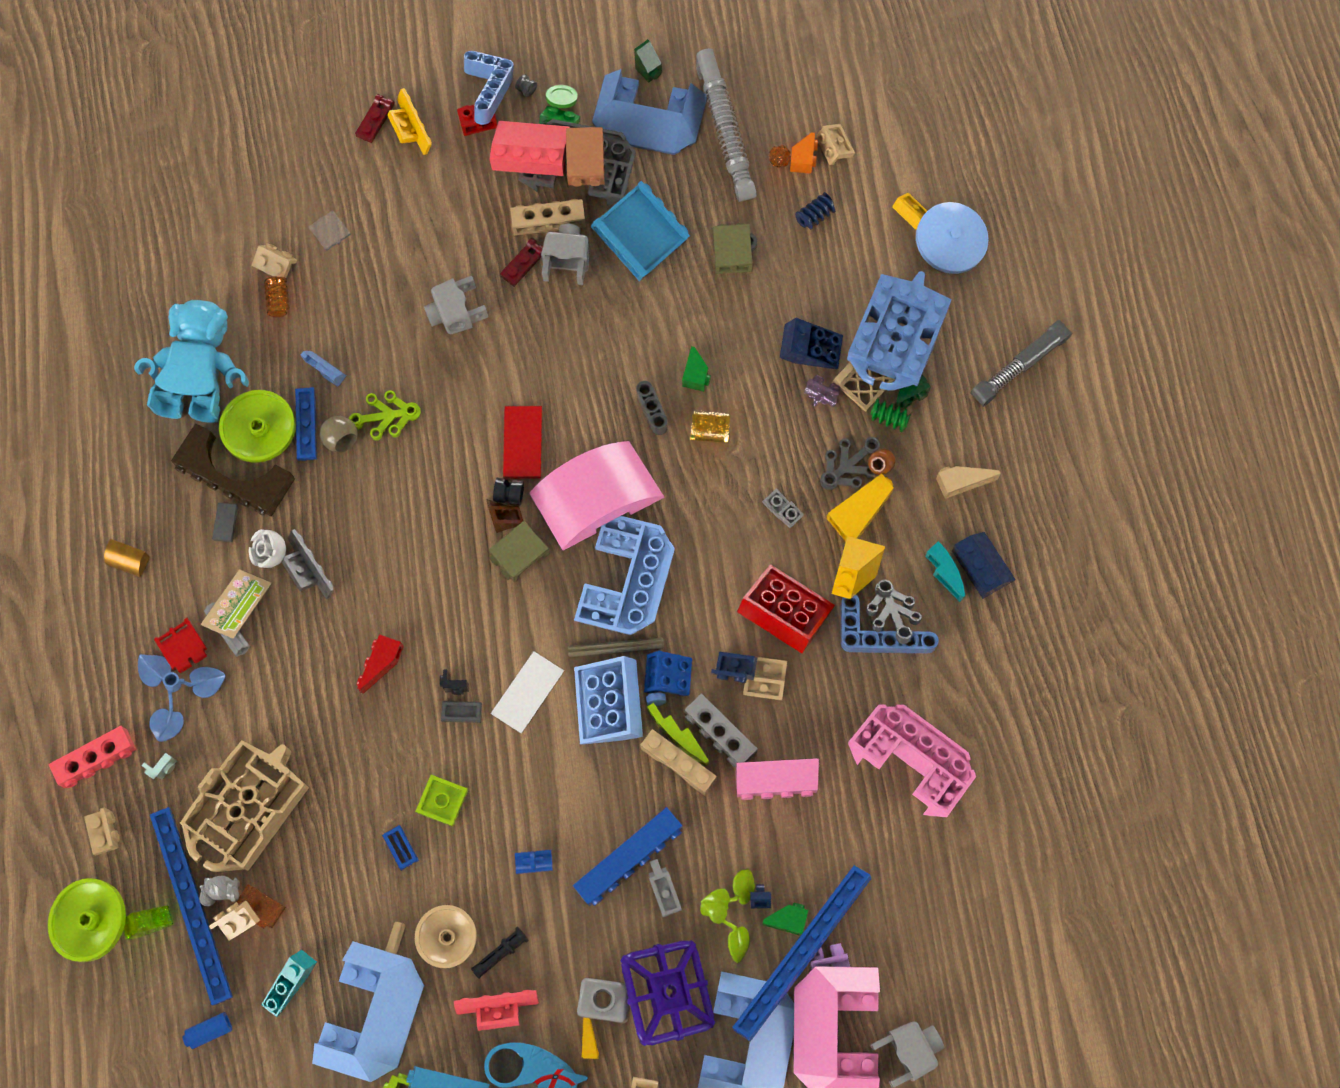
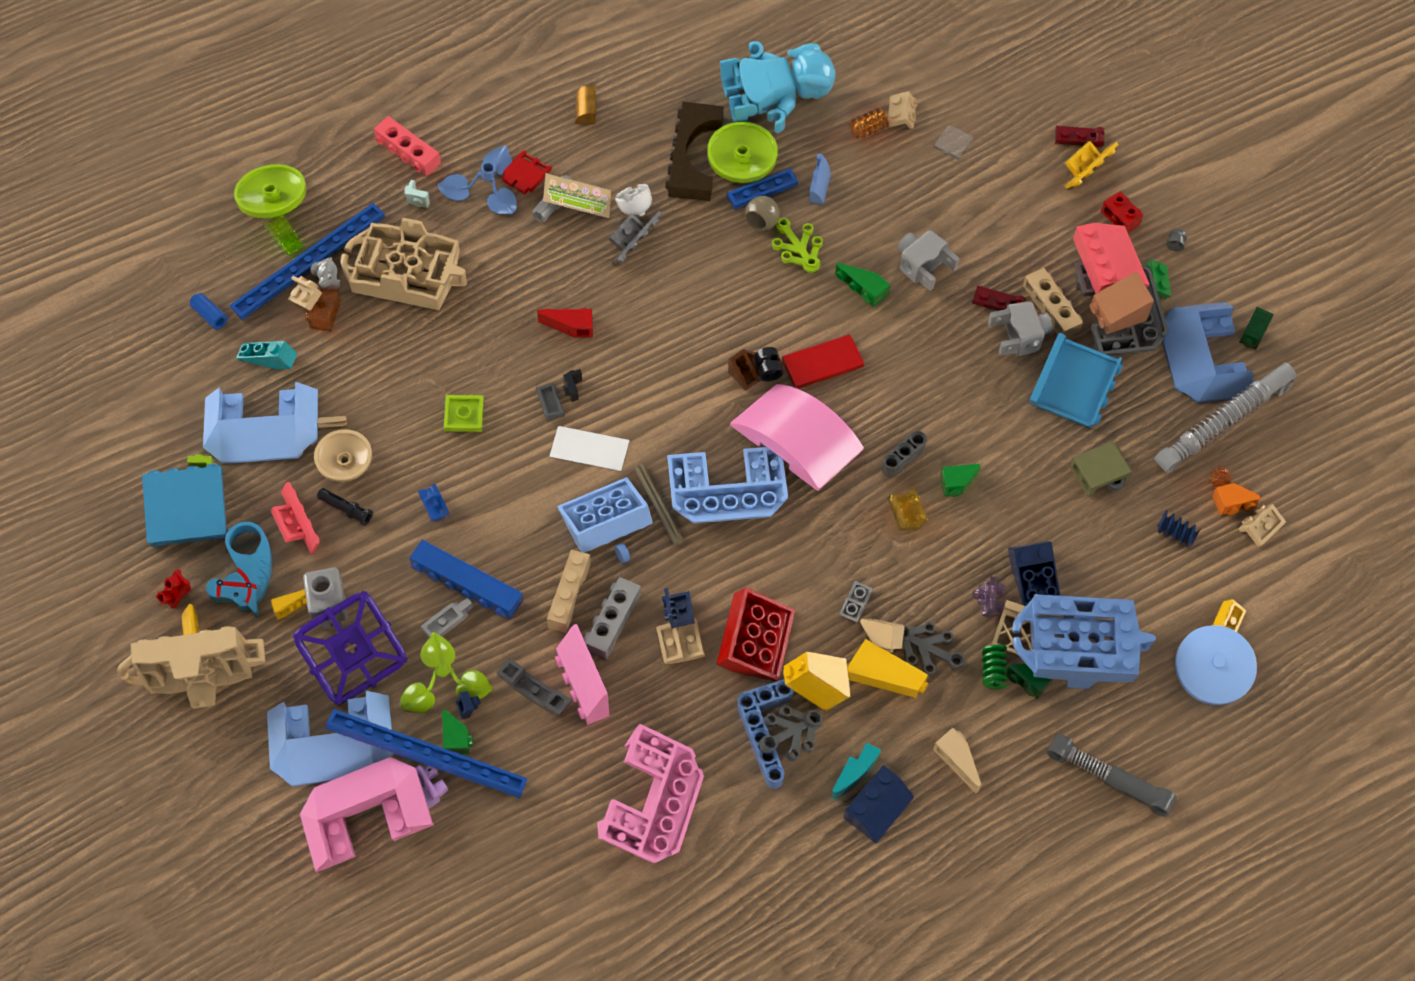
camera: 65 degrees right, 10 degrees down
(101, 831) = (348, 177): tan bracket -> none
(225, 522) = (647, 164): dark grey tile -> none
(407, 862) = (409, 405): blue tile -> none
(456, 370) = (866, 283): none -> green slope
(499, 75) = (1172, 213): medium blue beam -> none
(518, 551) = (716, 391): olive panel -> none
(561, 96) = (1181, 272): piece -> none
(667, 673) = (651, 557): blue bracket -> none
(683, 739) = (593, 588): lime slope -> none
(766, 828) = (533, 689): none -> dark grey slope
(825, 495) = (884, 633): none -> tan slope
(881, 461) = (941, 672): dark orange head -> none
(914, 1049) = (365, 883): light grey piece -> none

